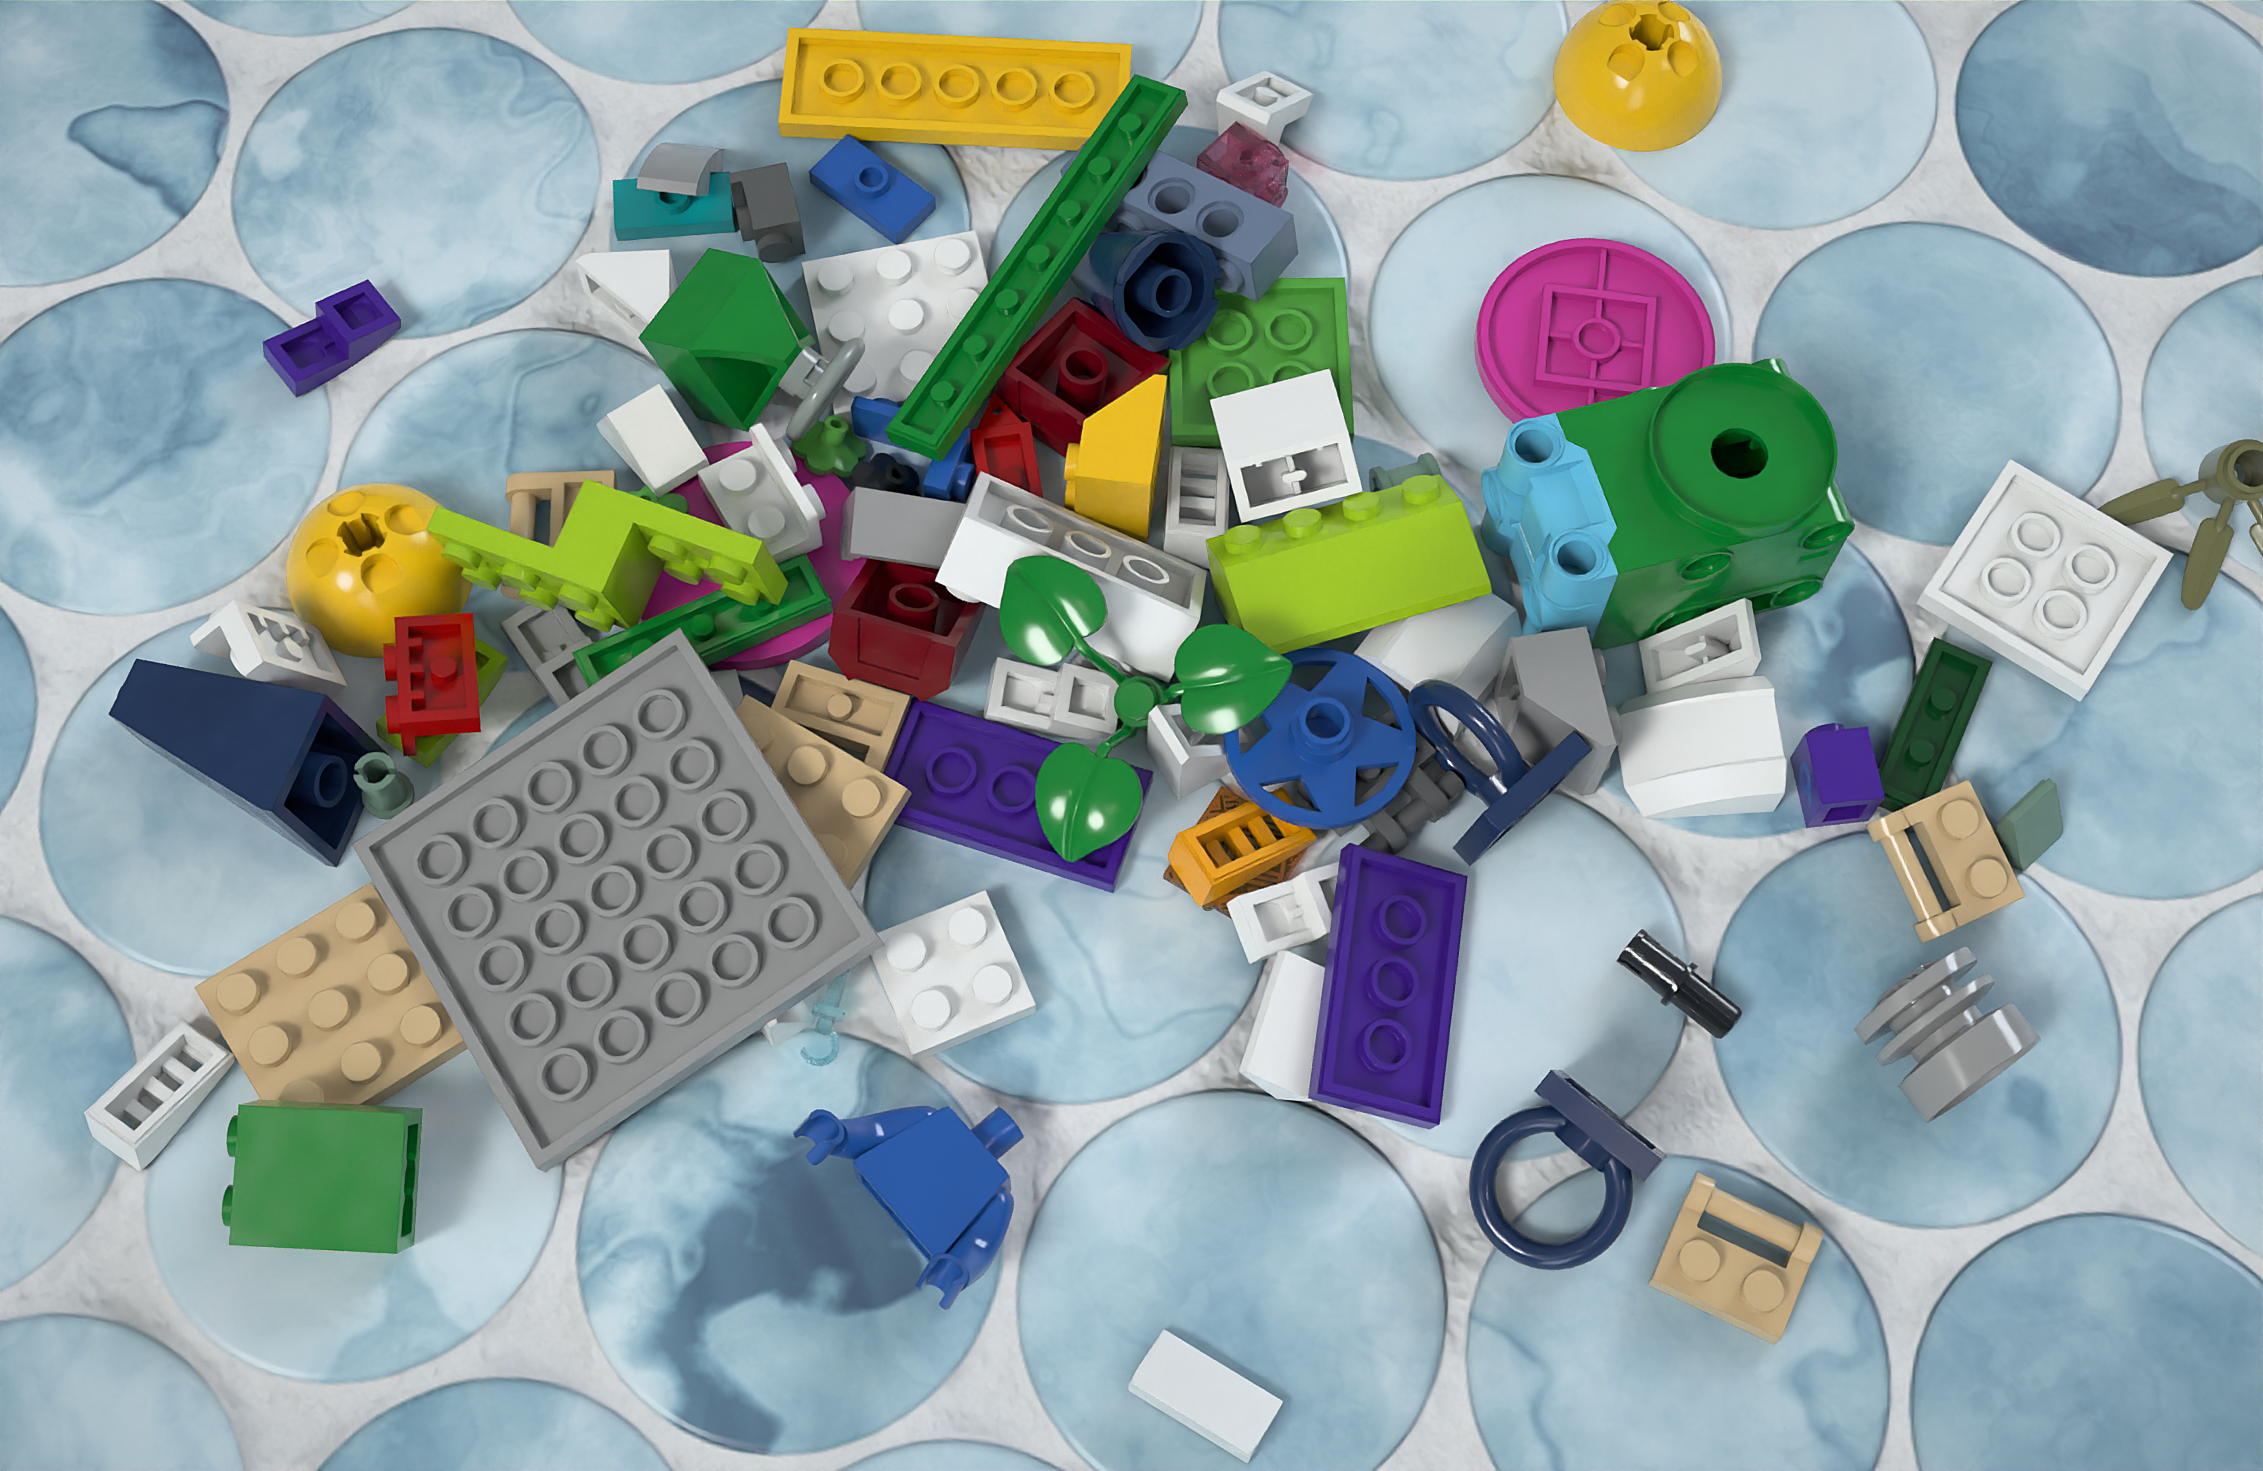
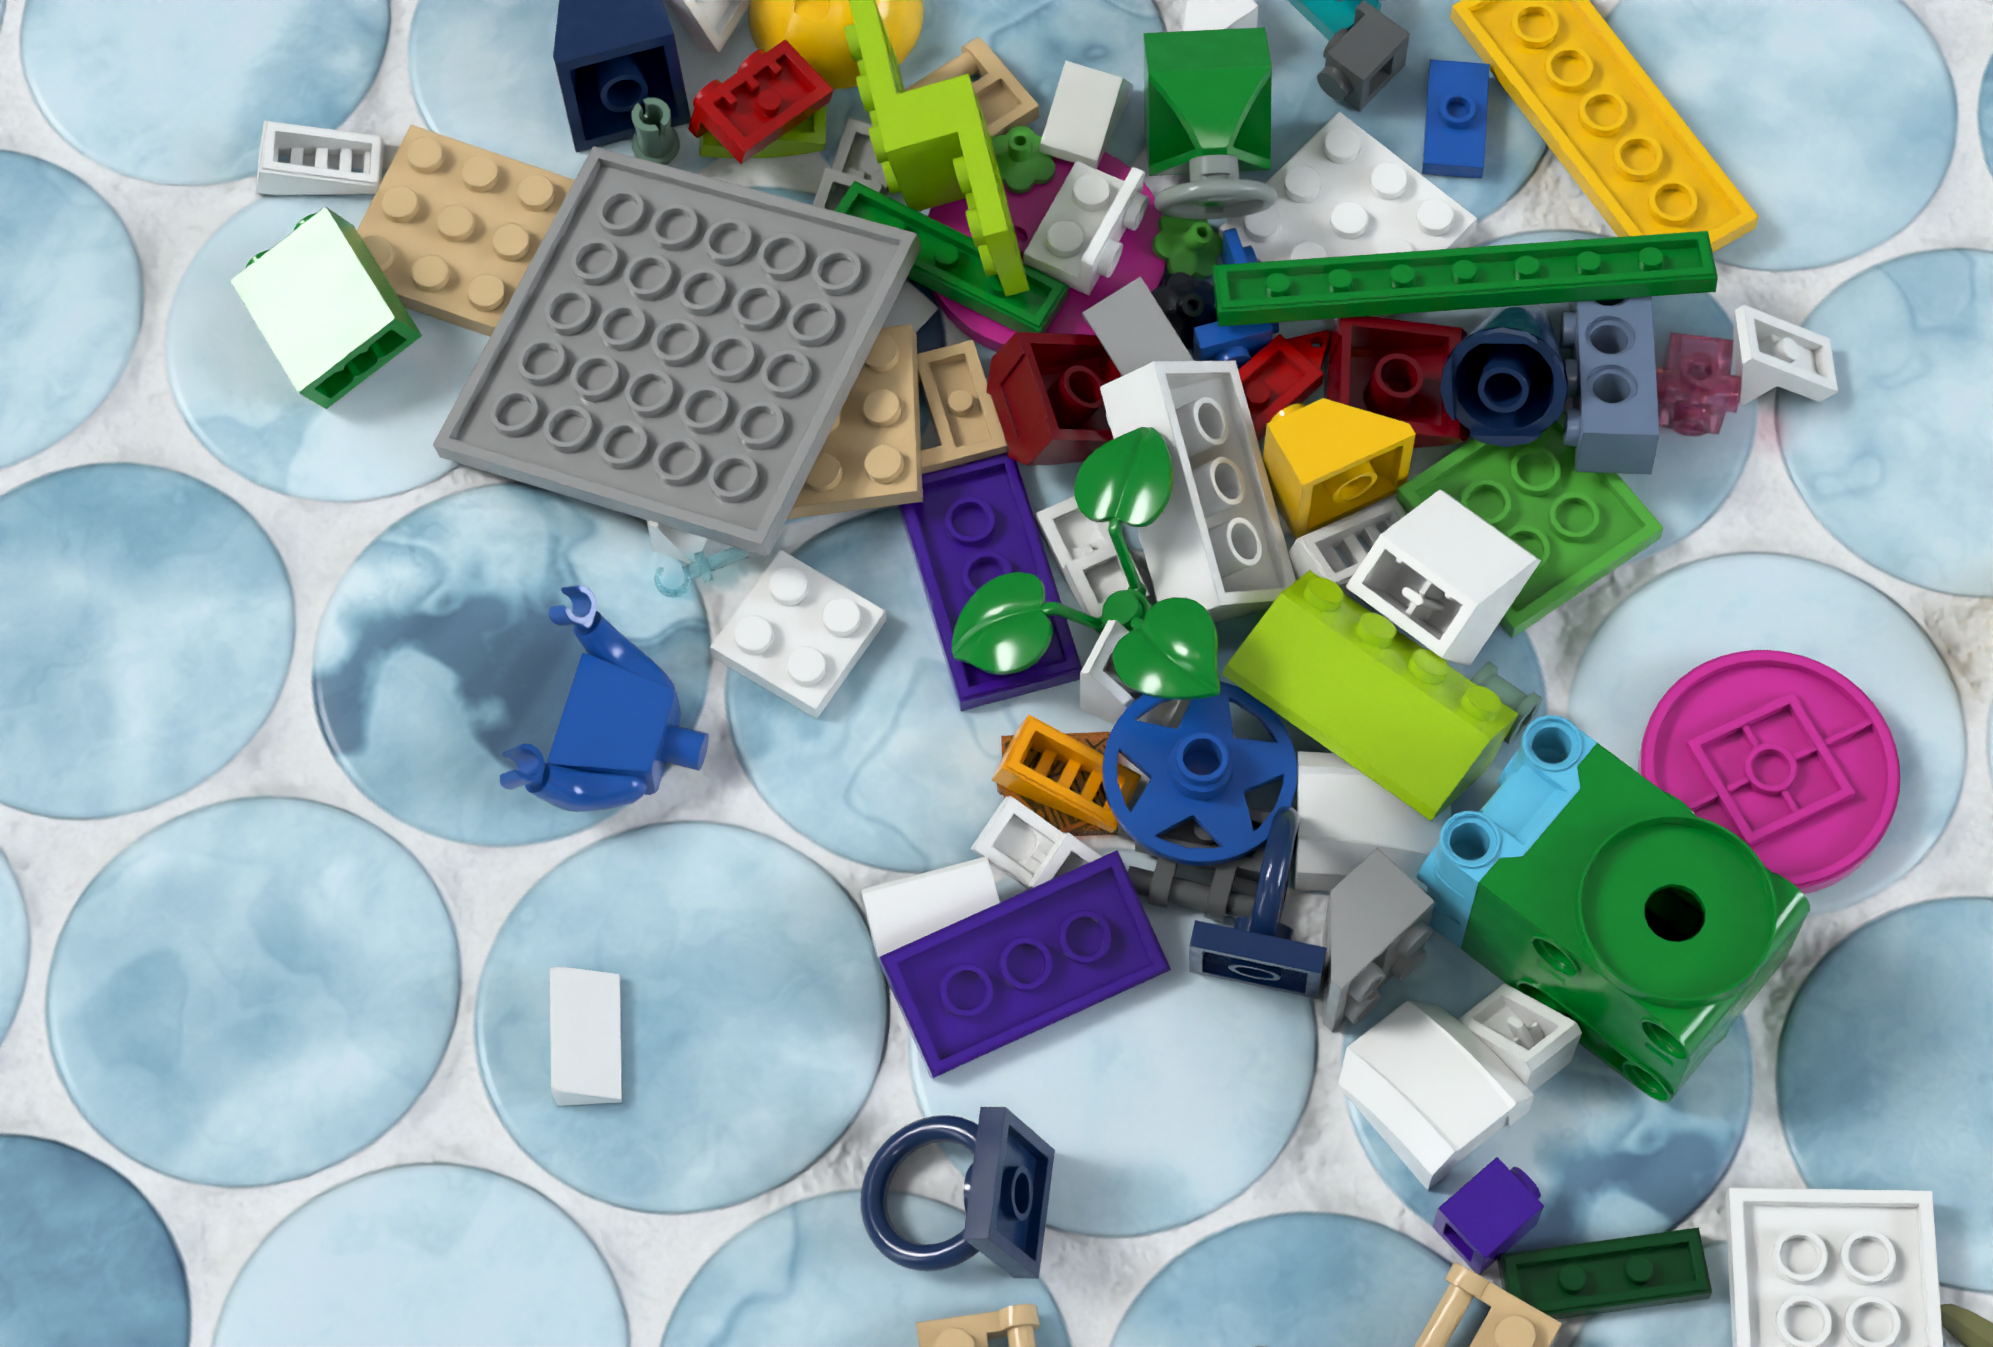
camera: 60 degrees right, 0 degrees up
(1680, 985) = (1197, 1197): black axle -> none

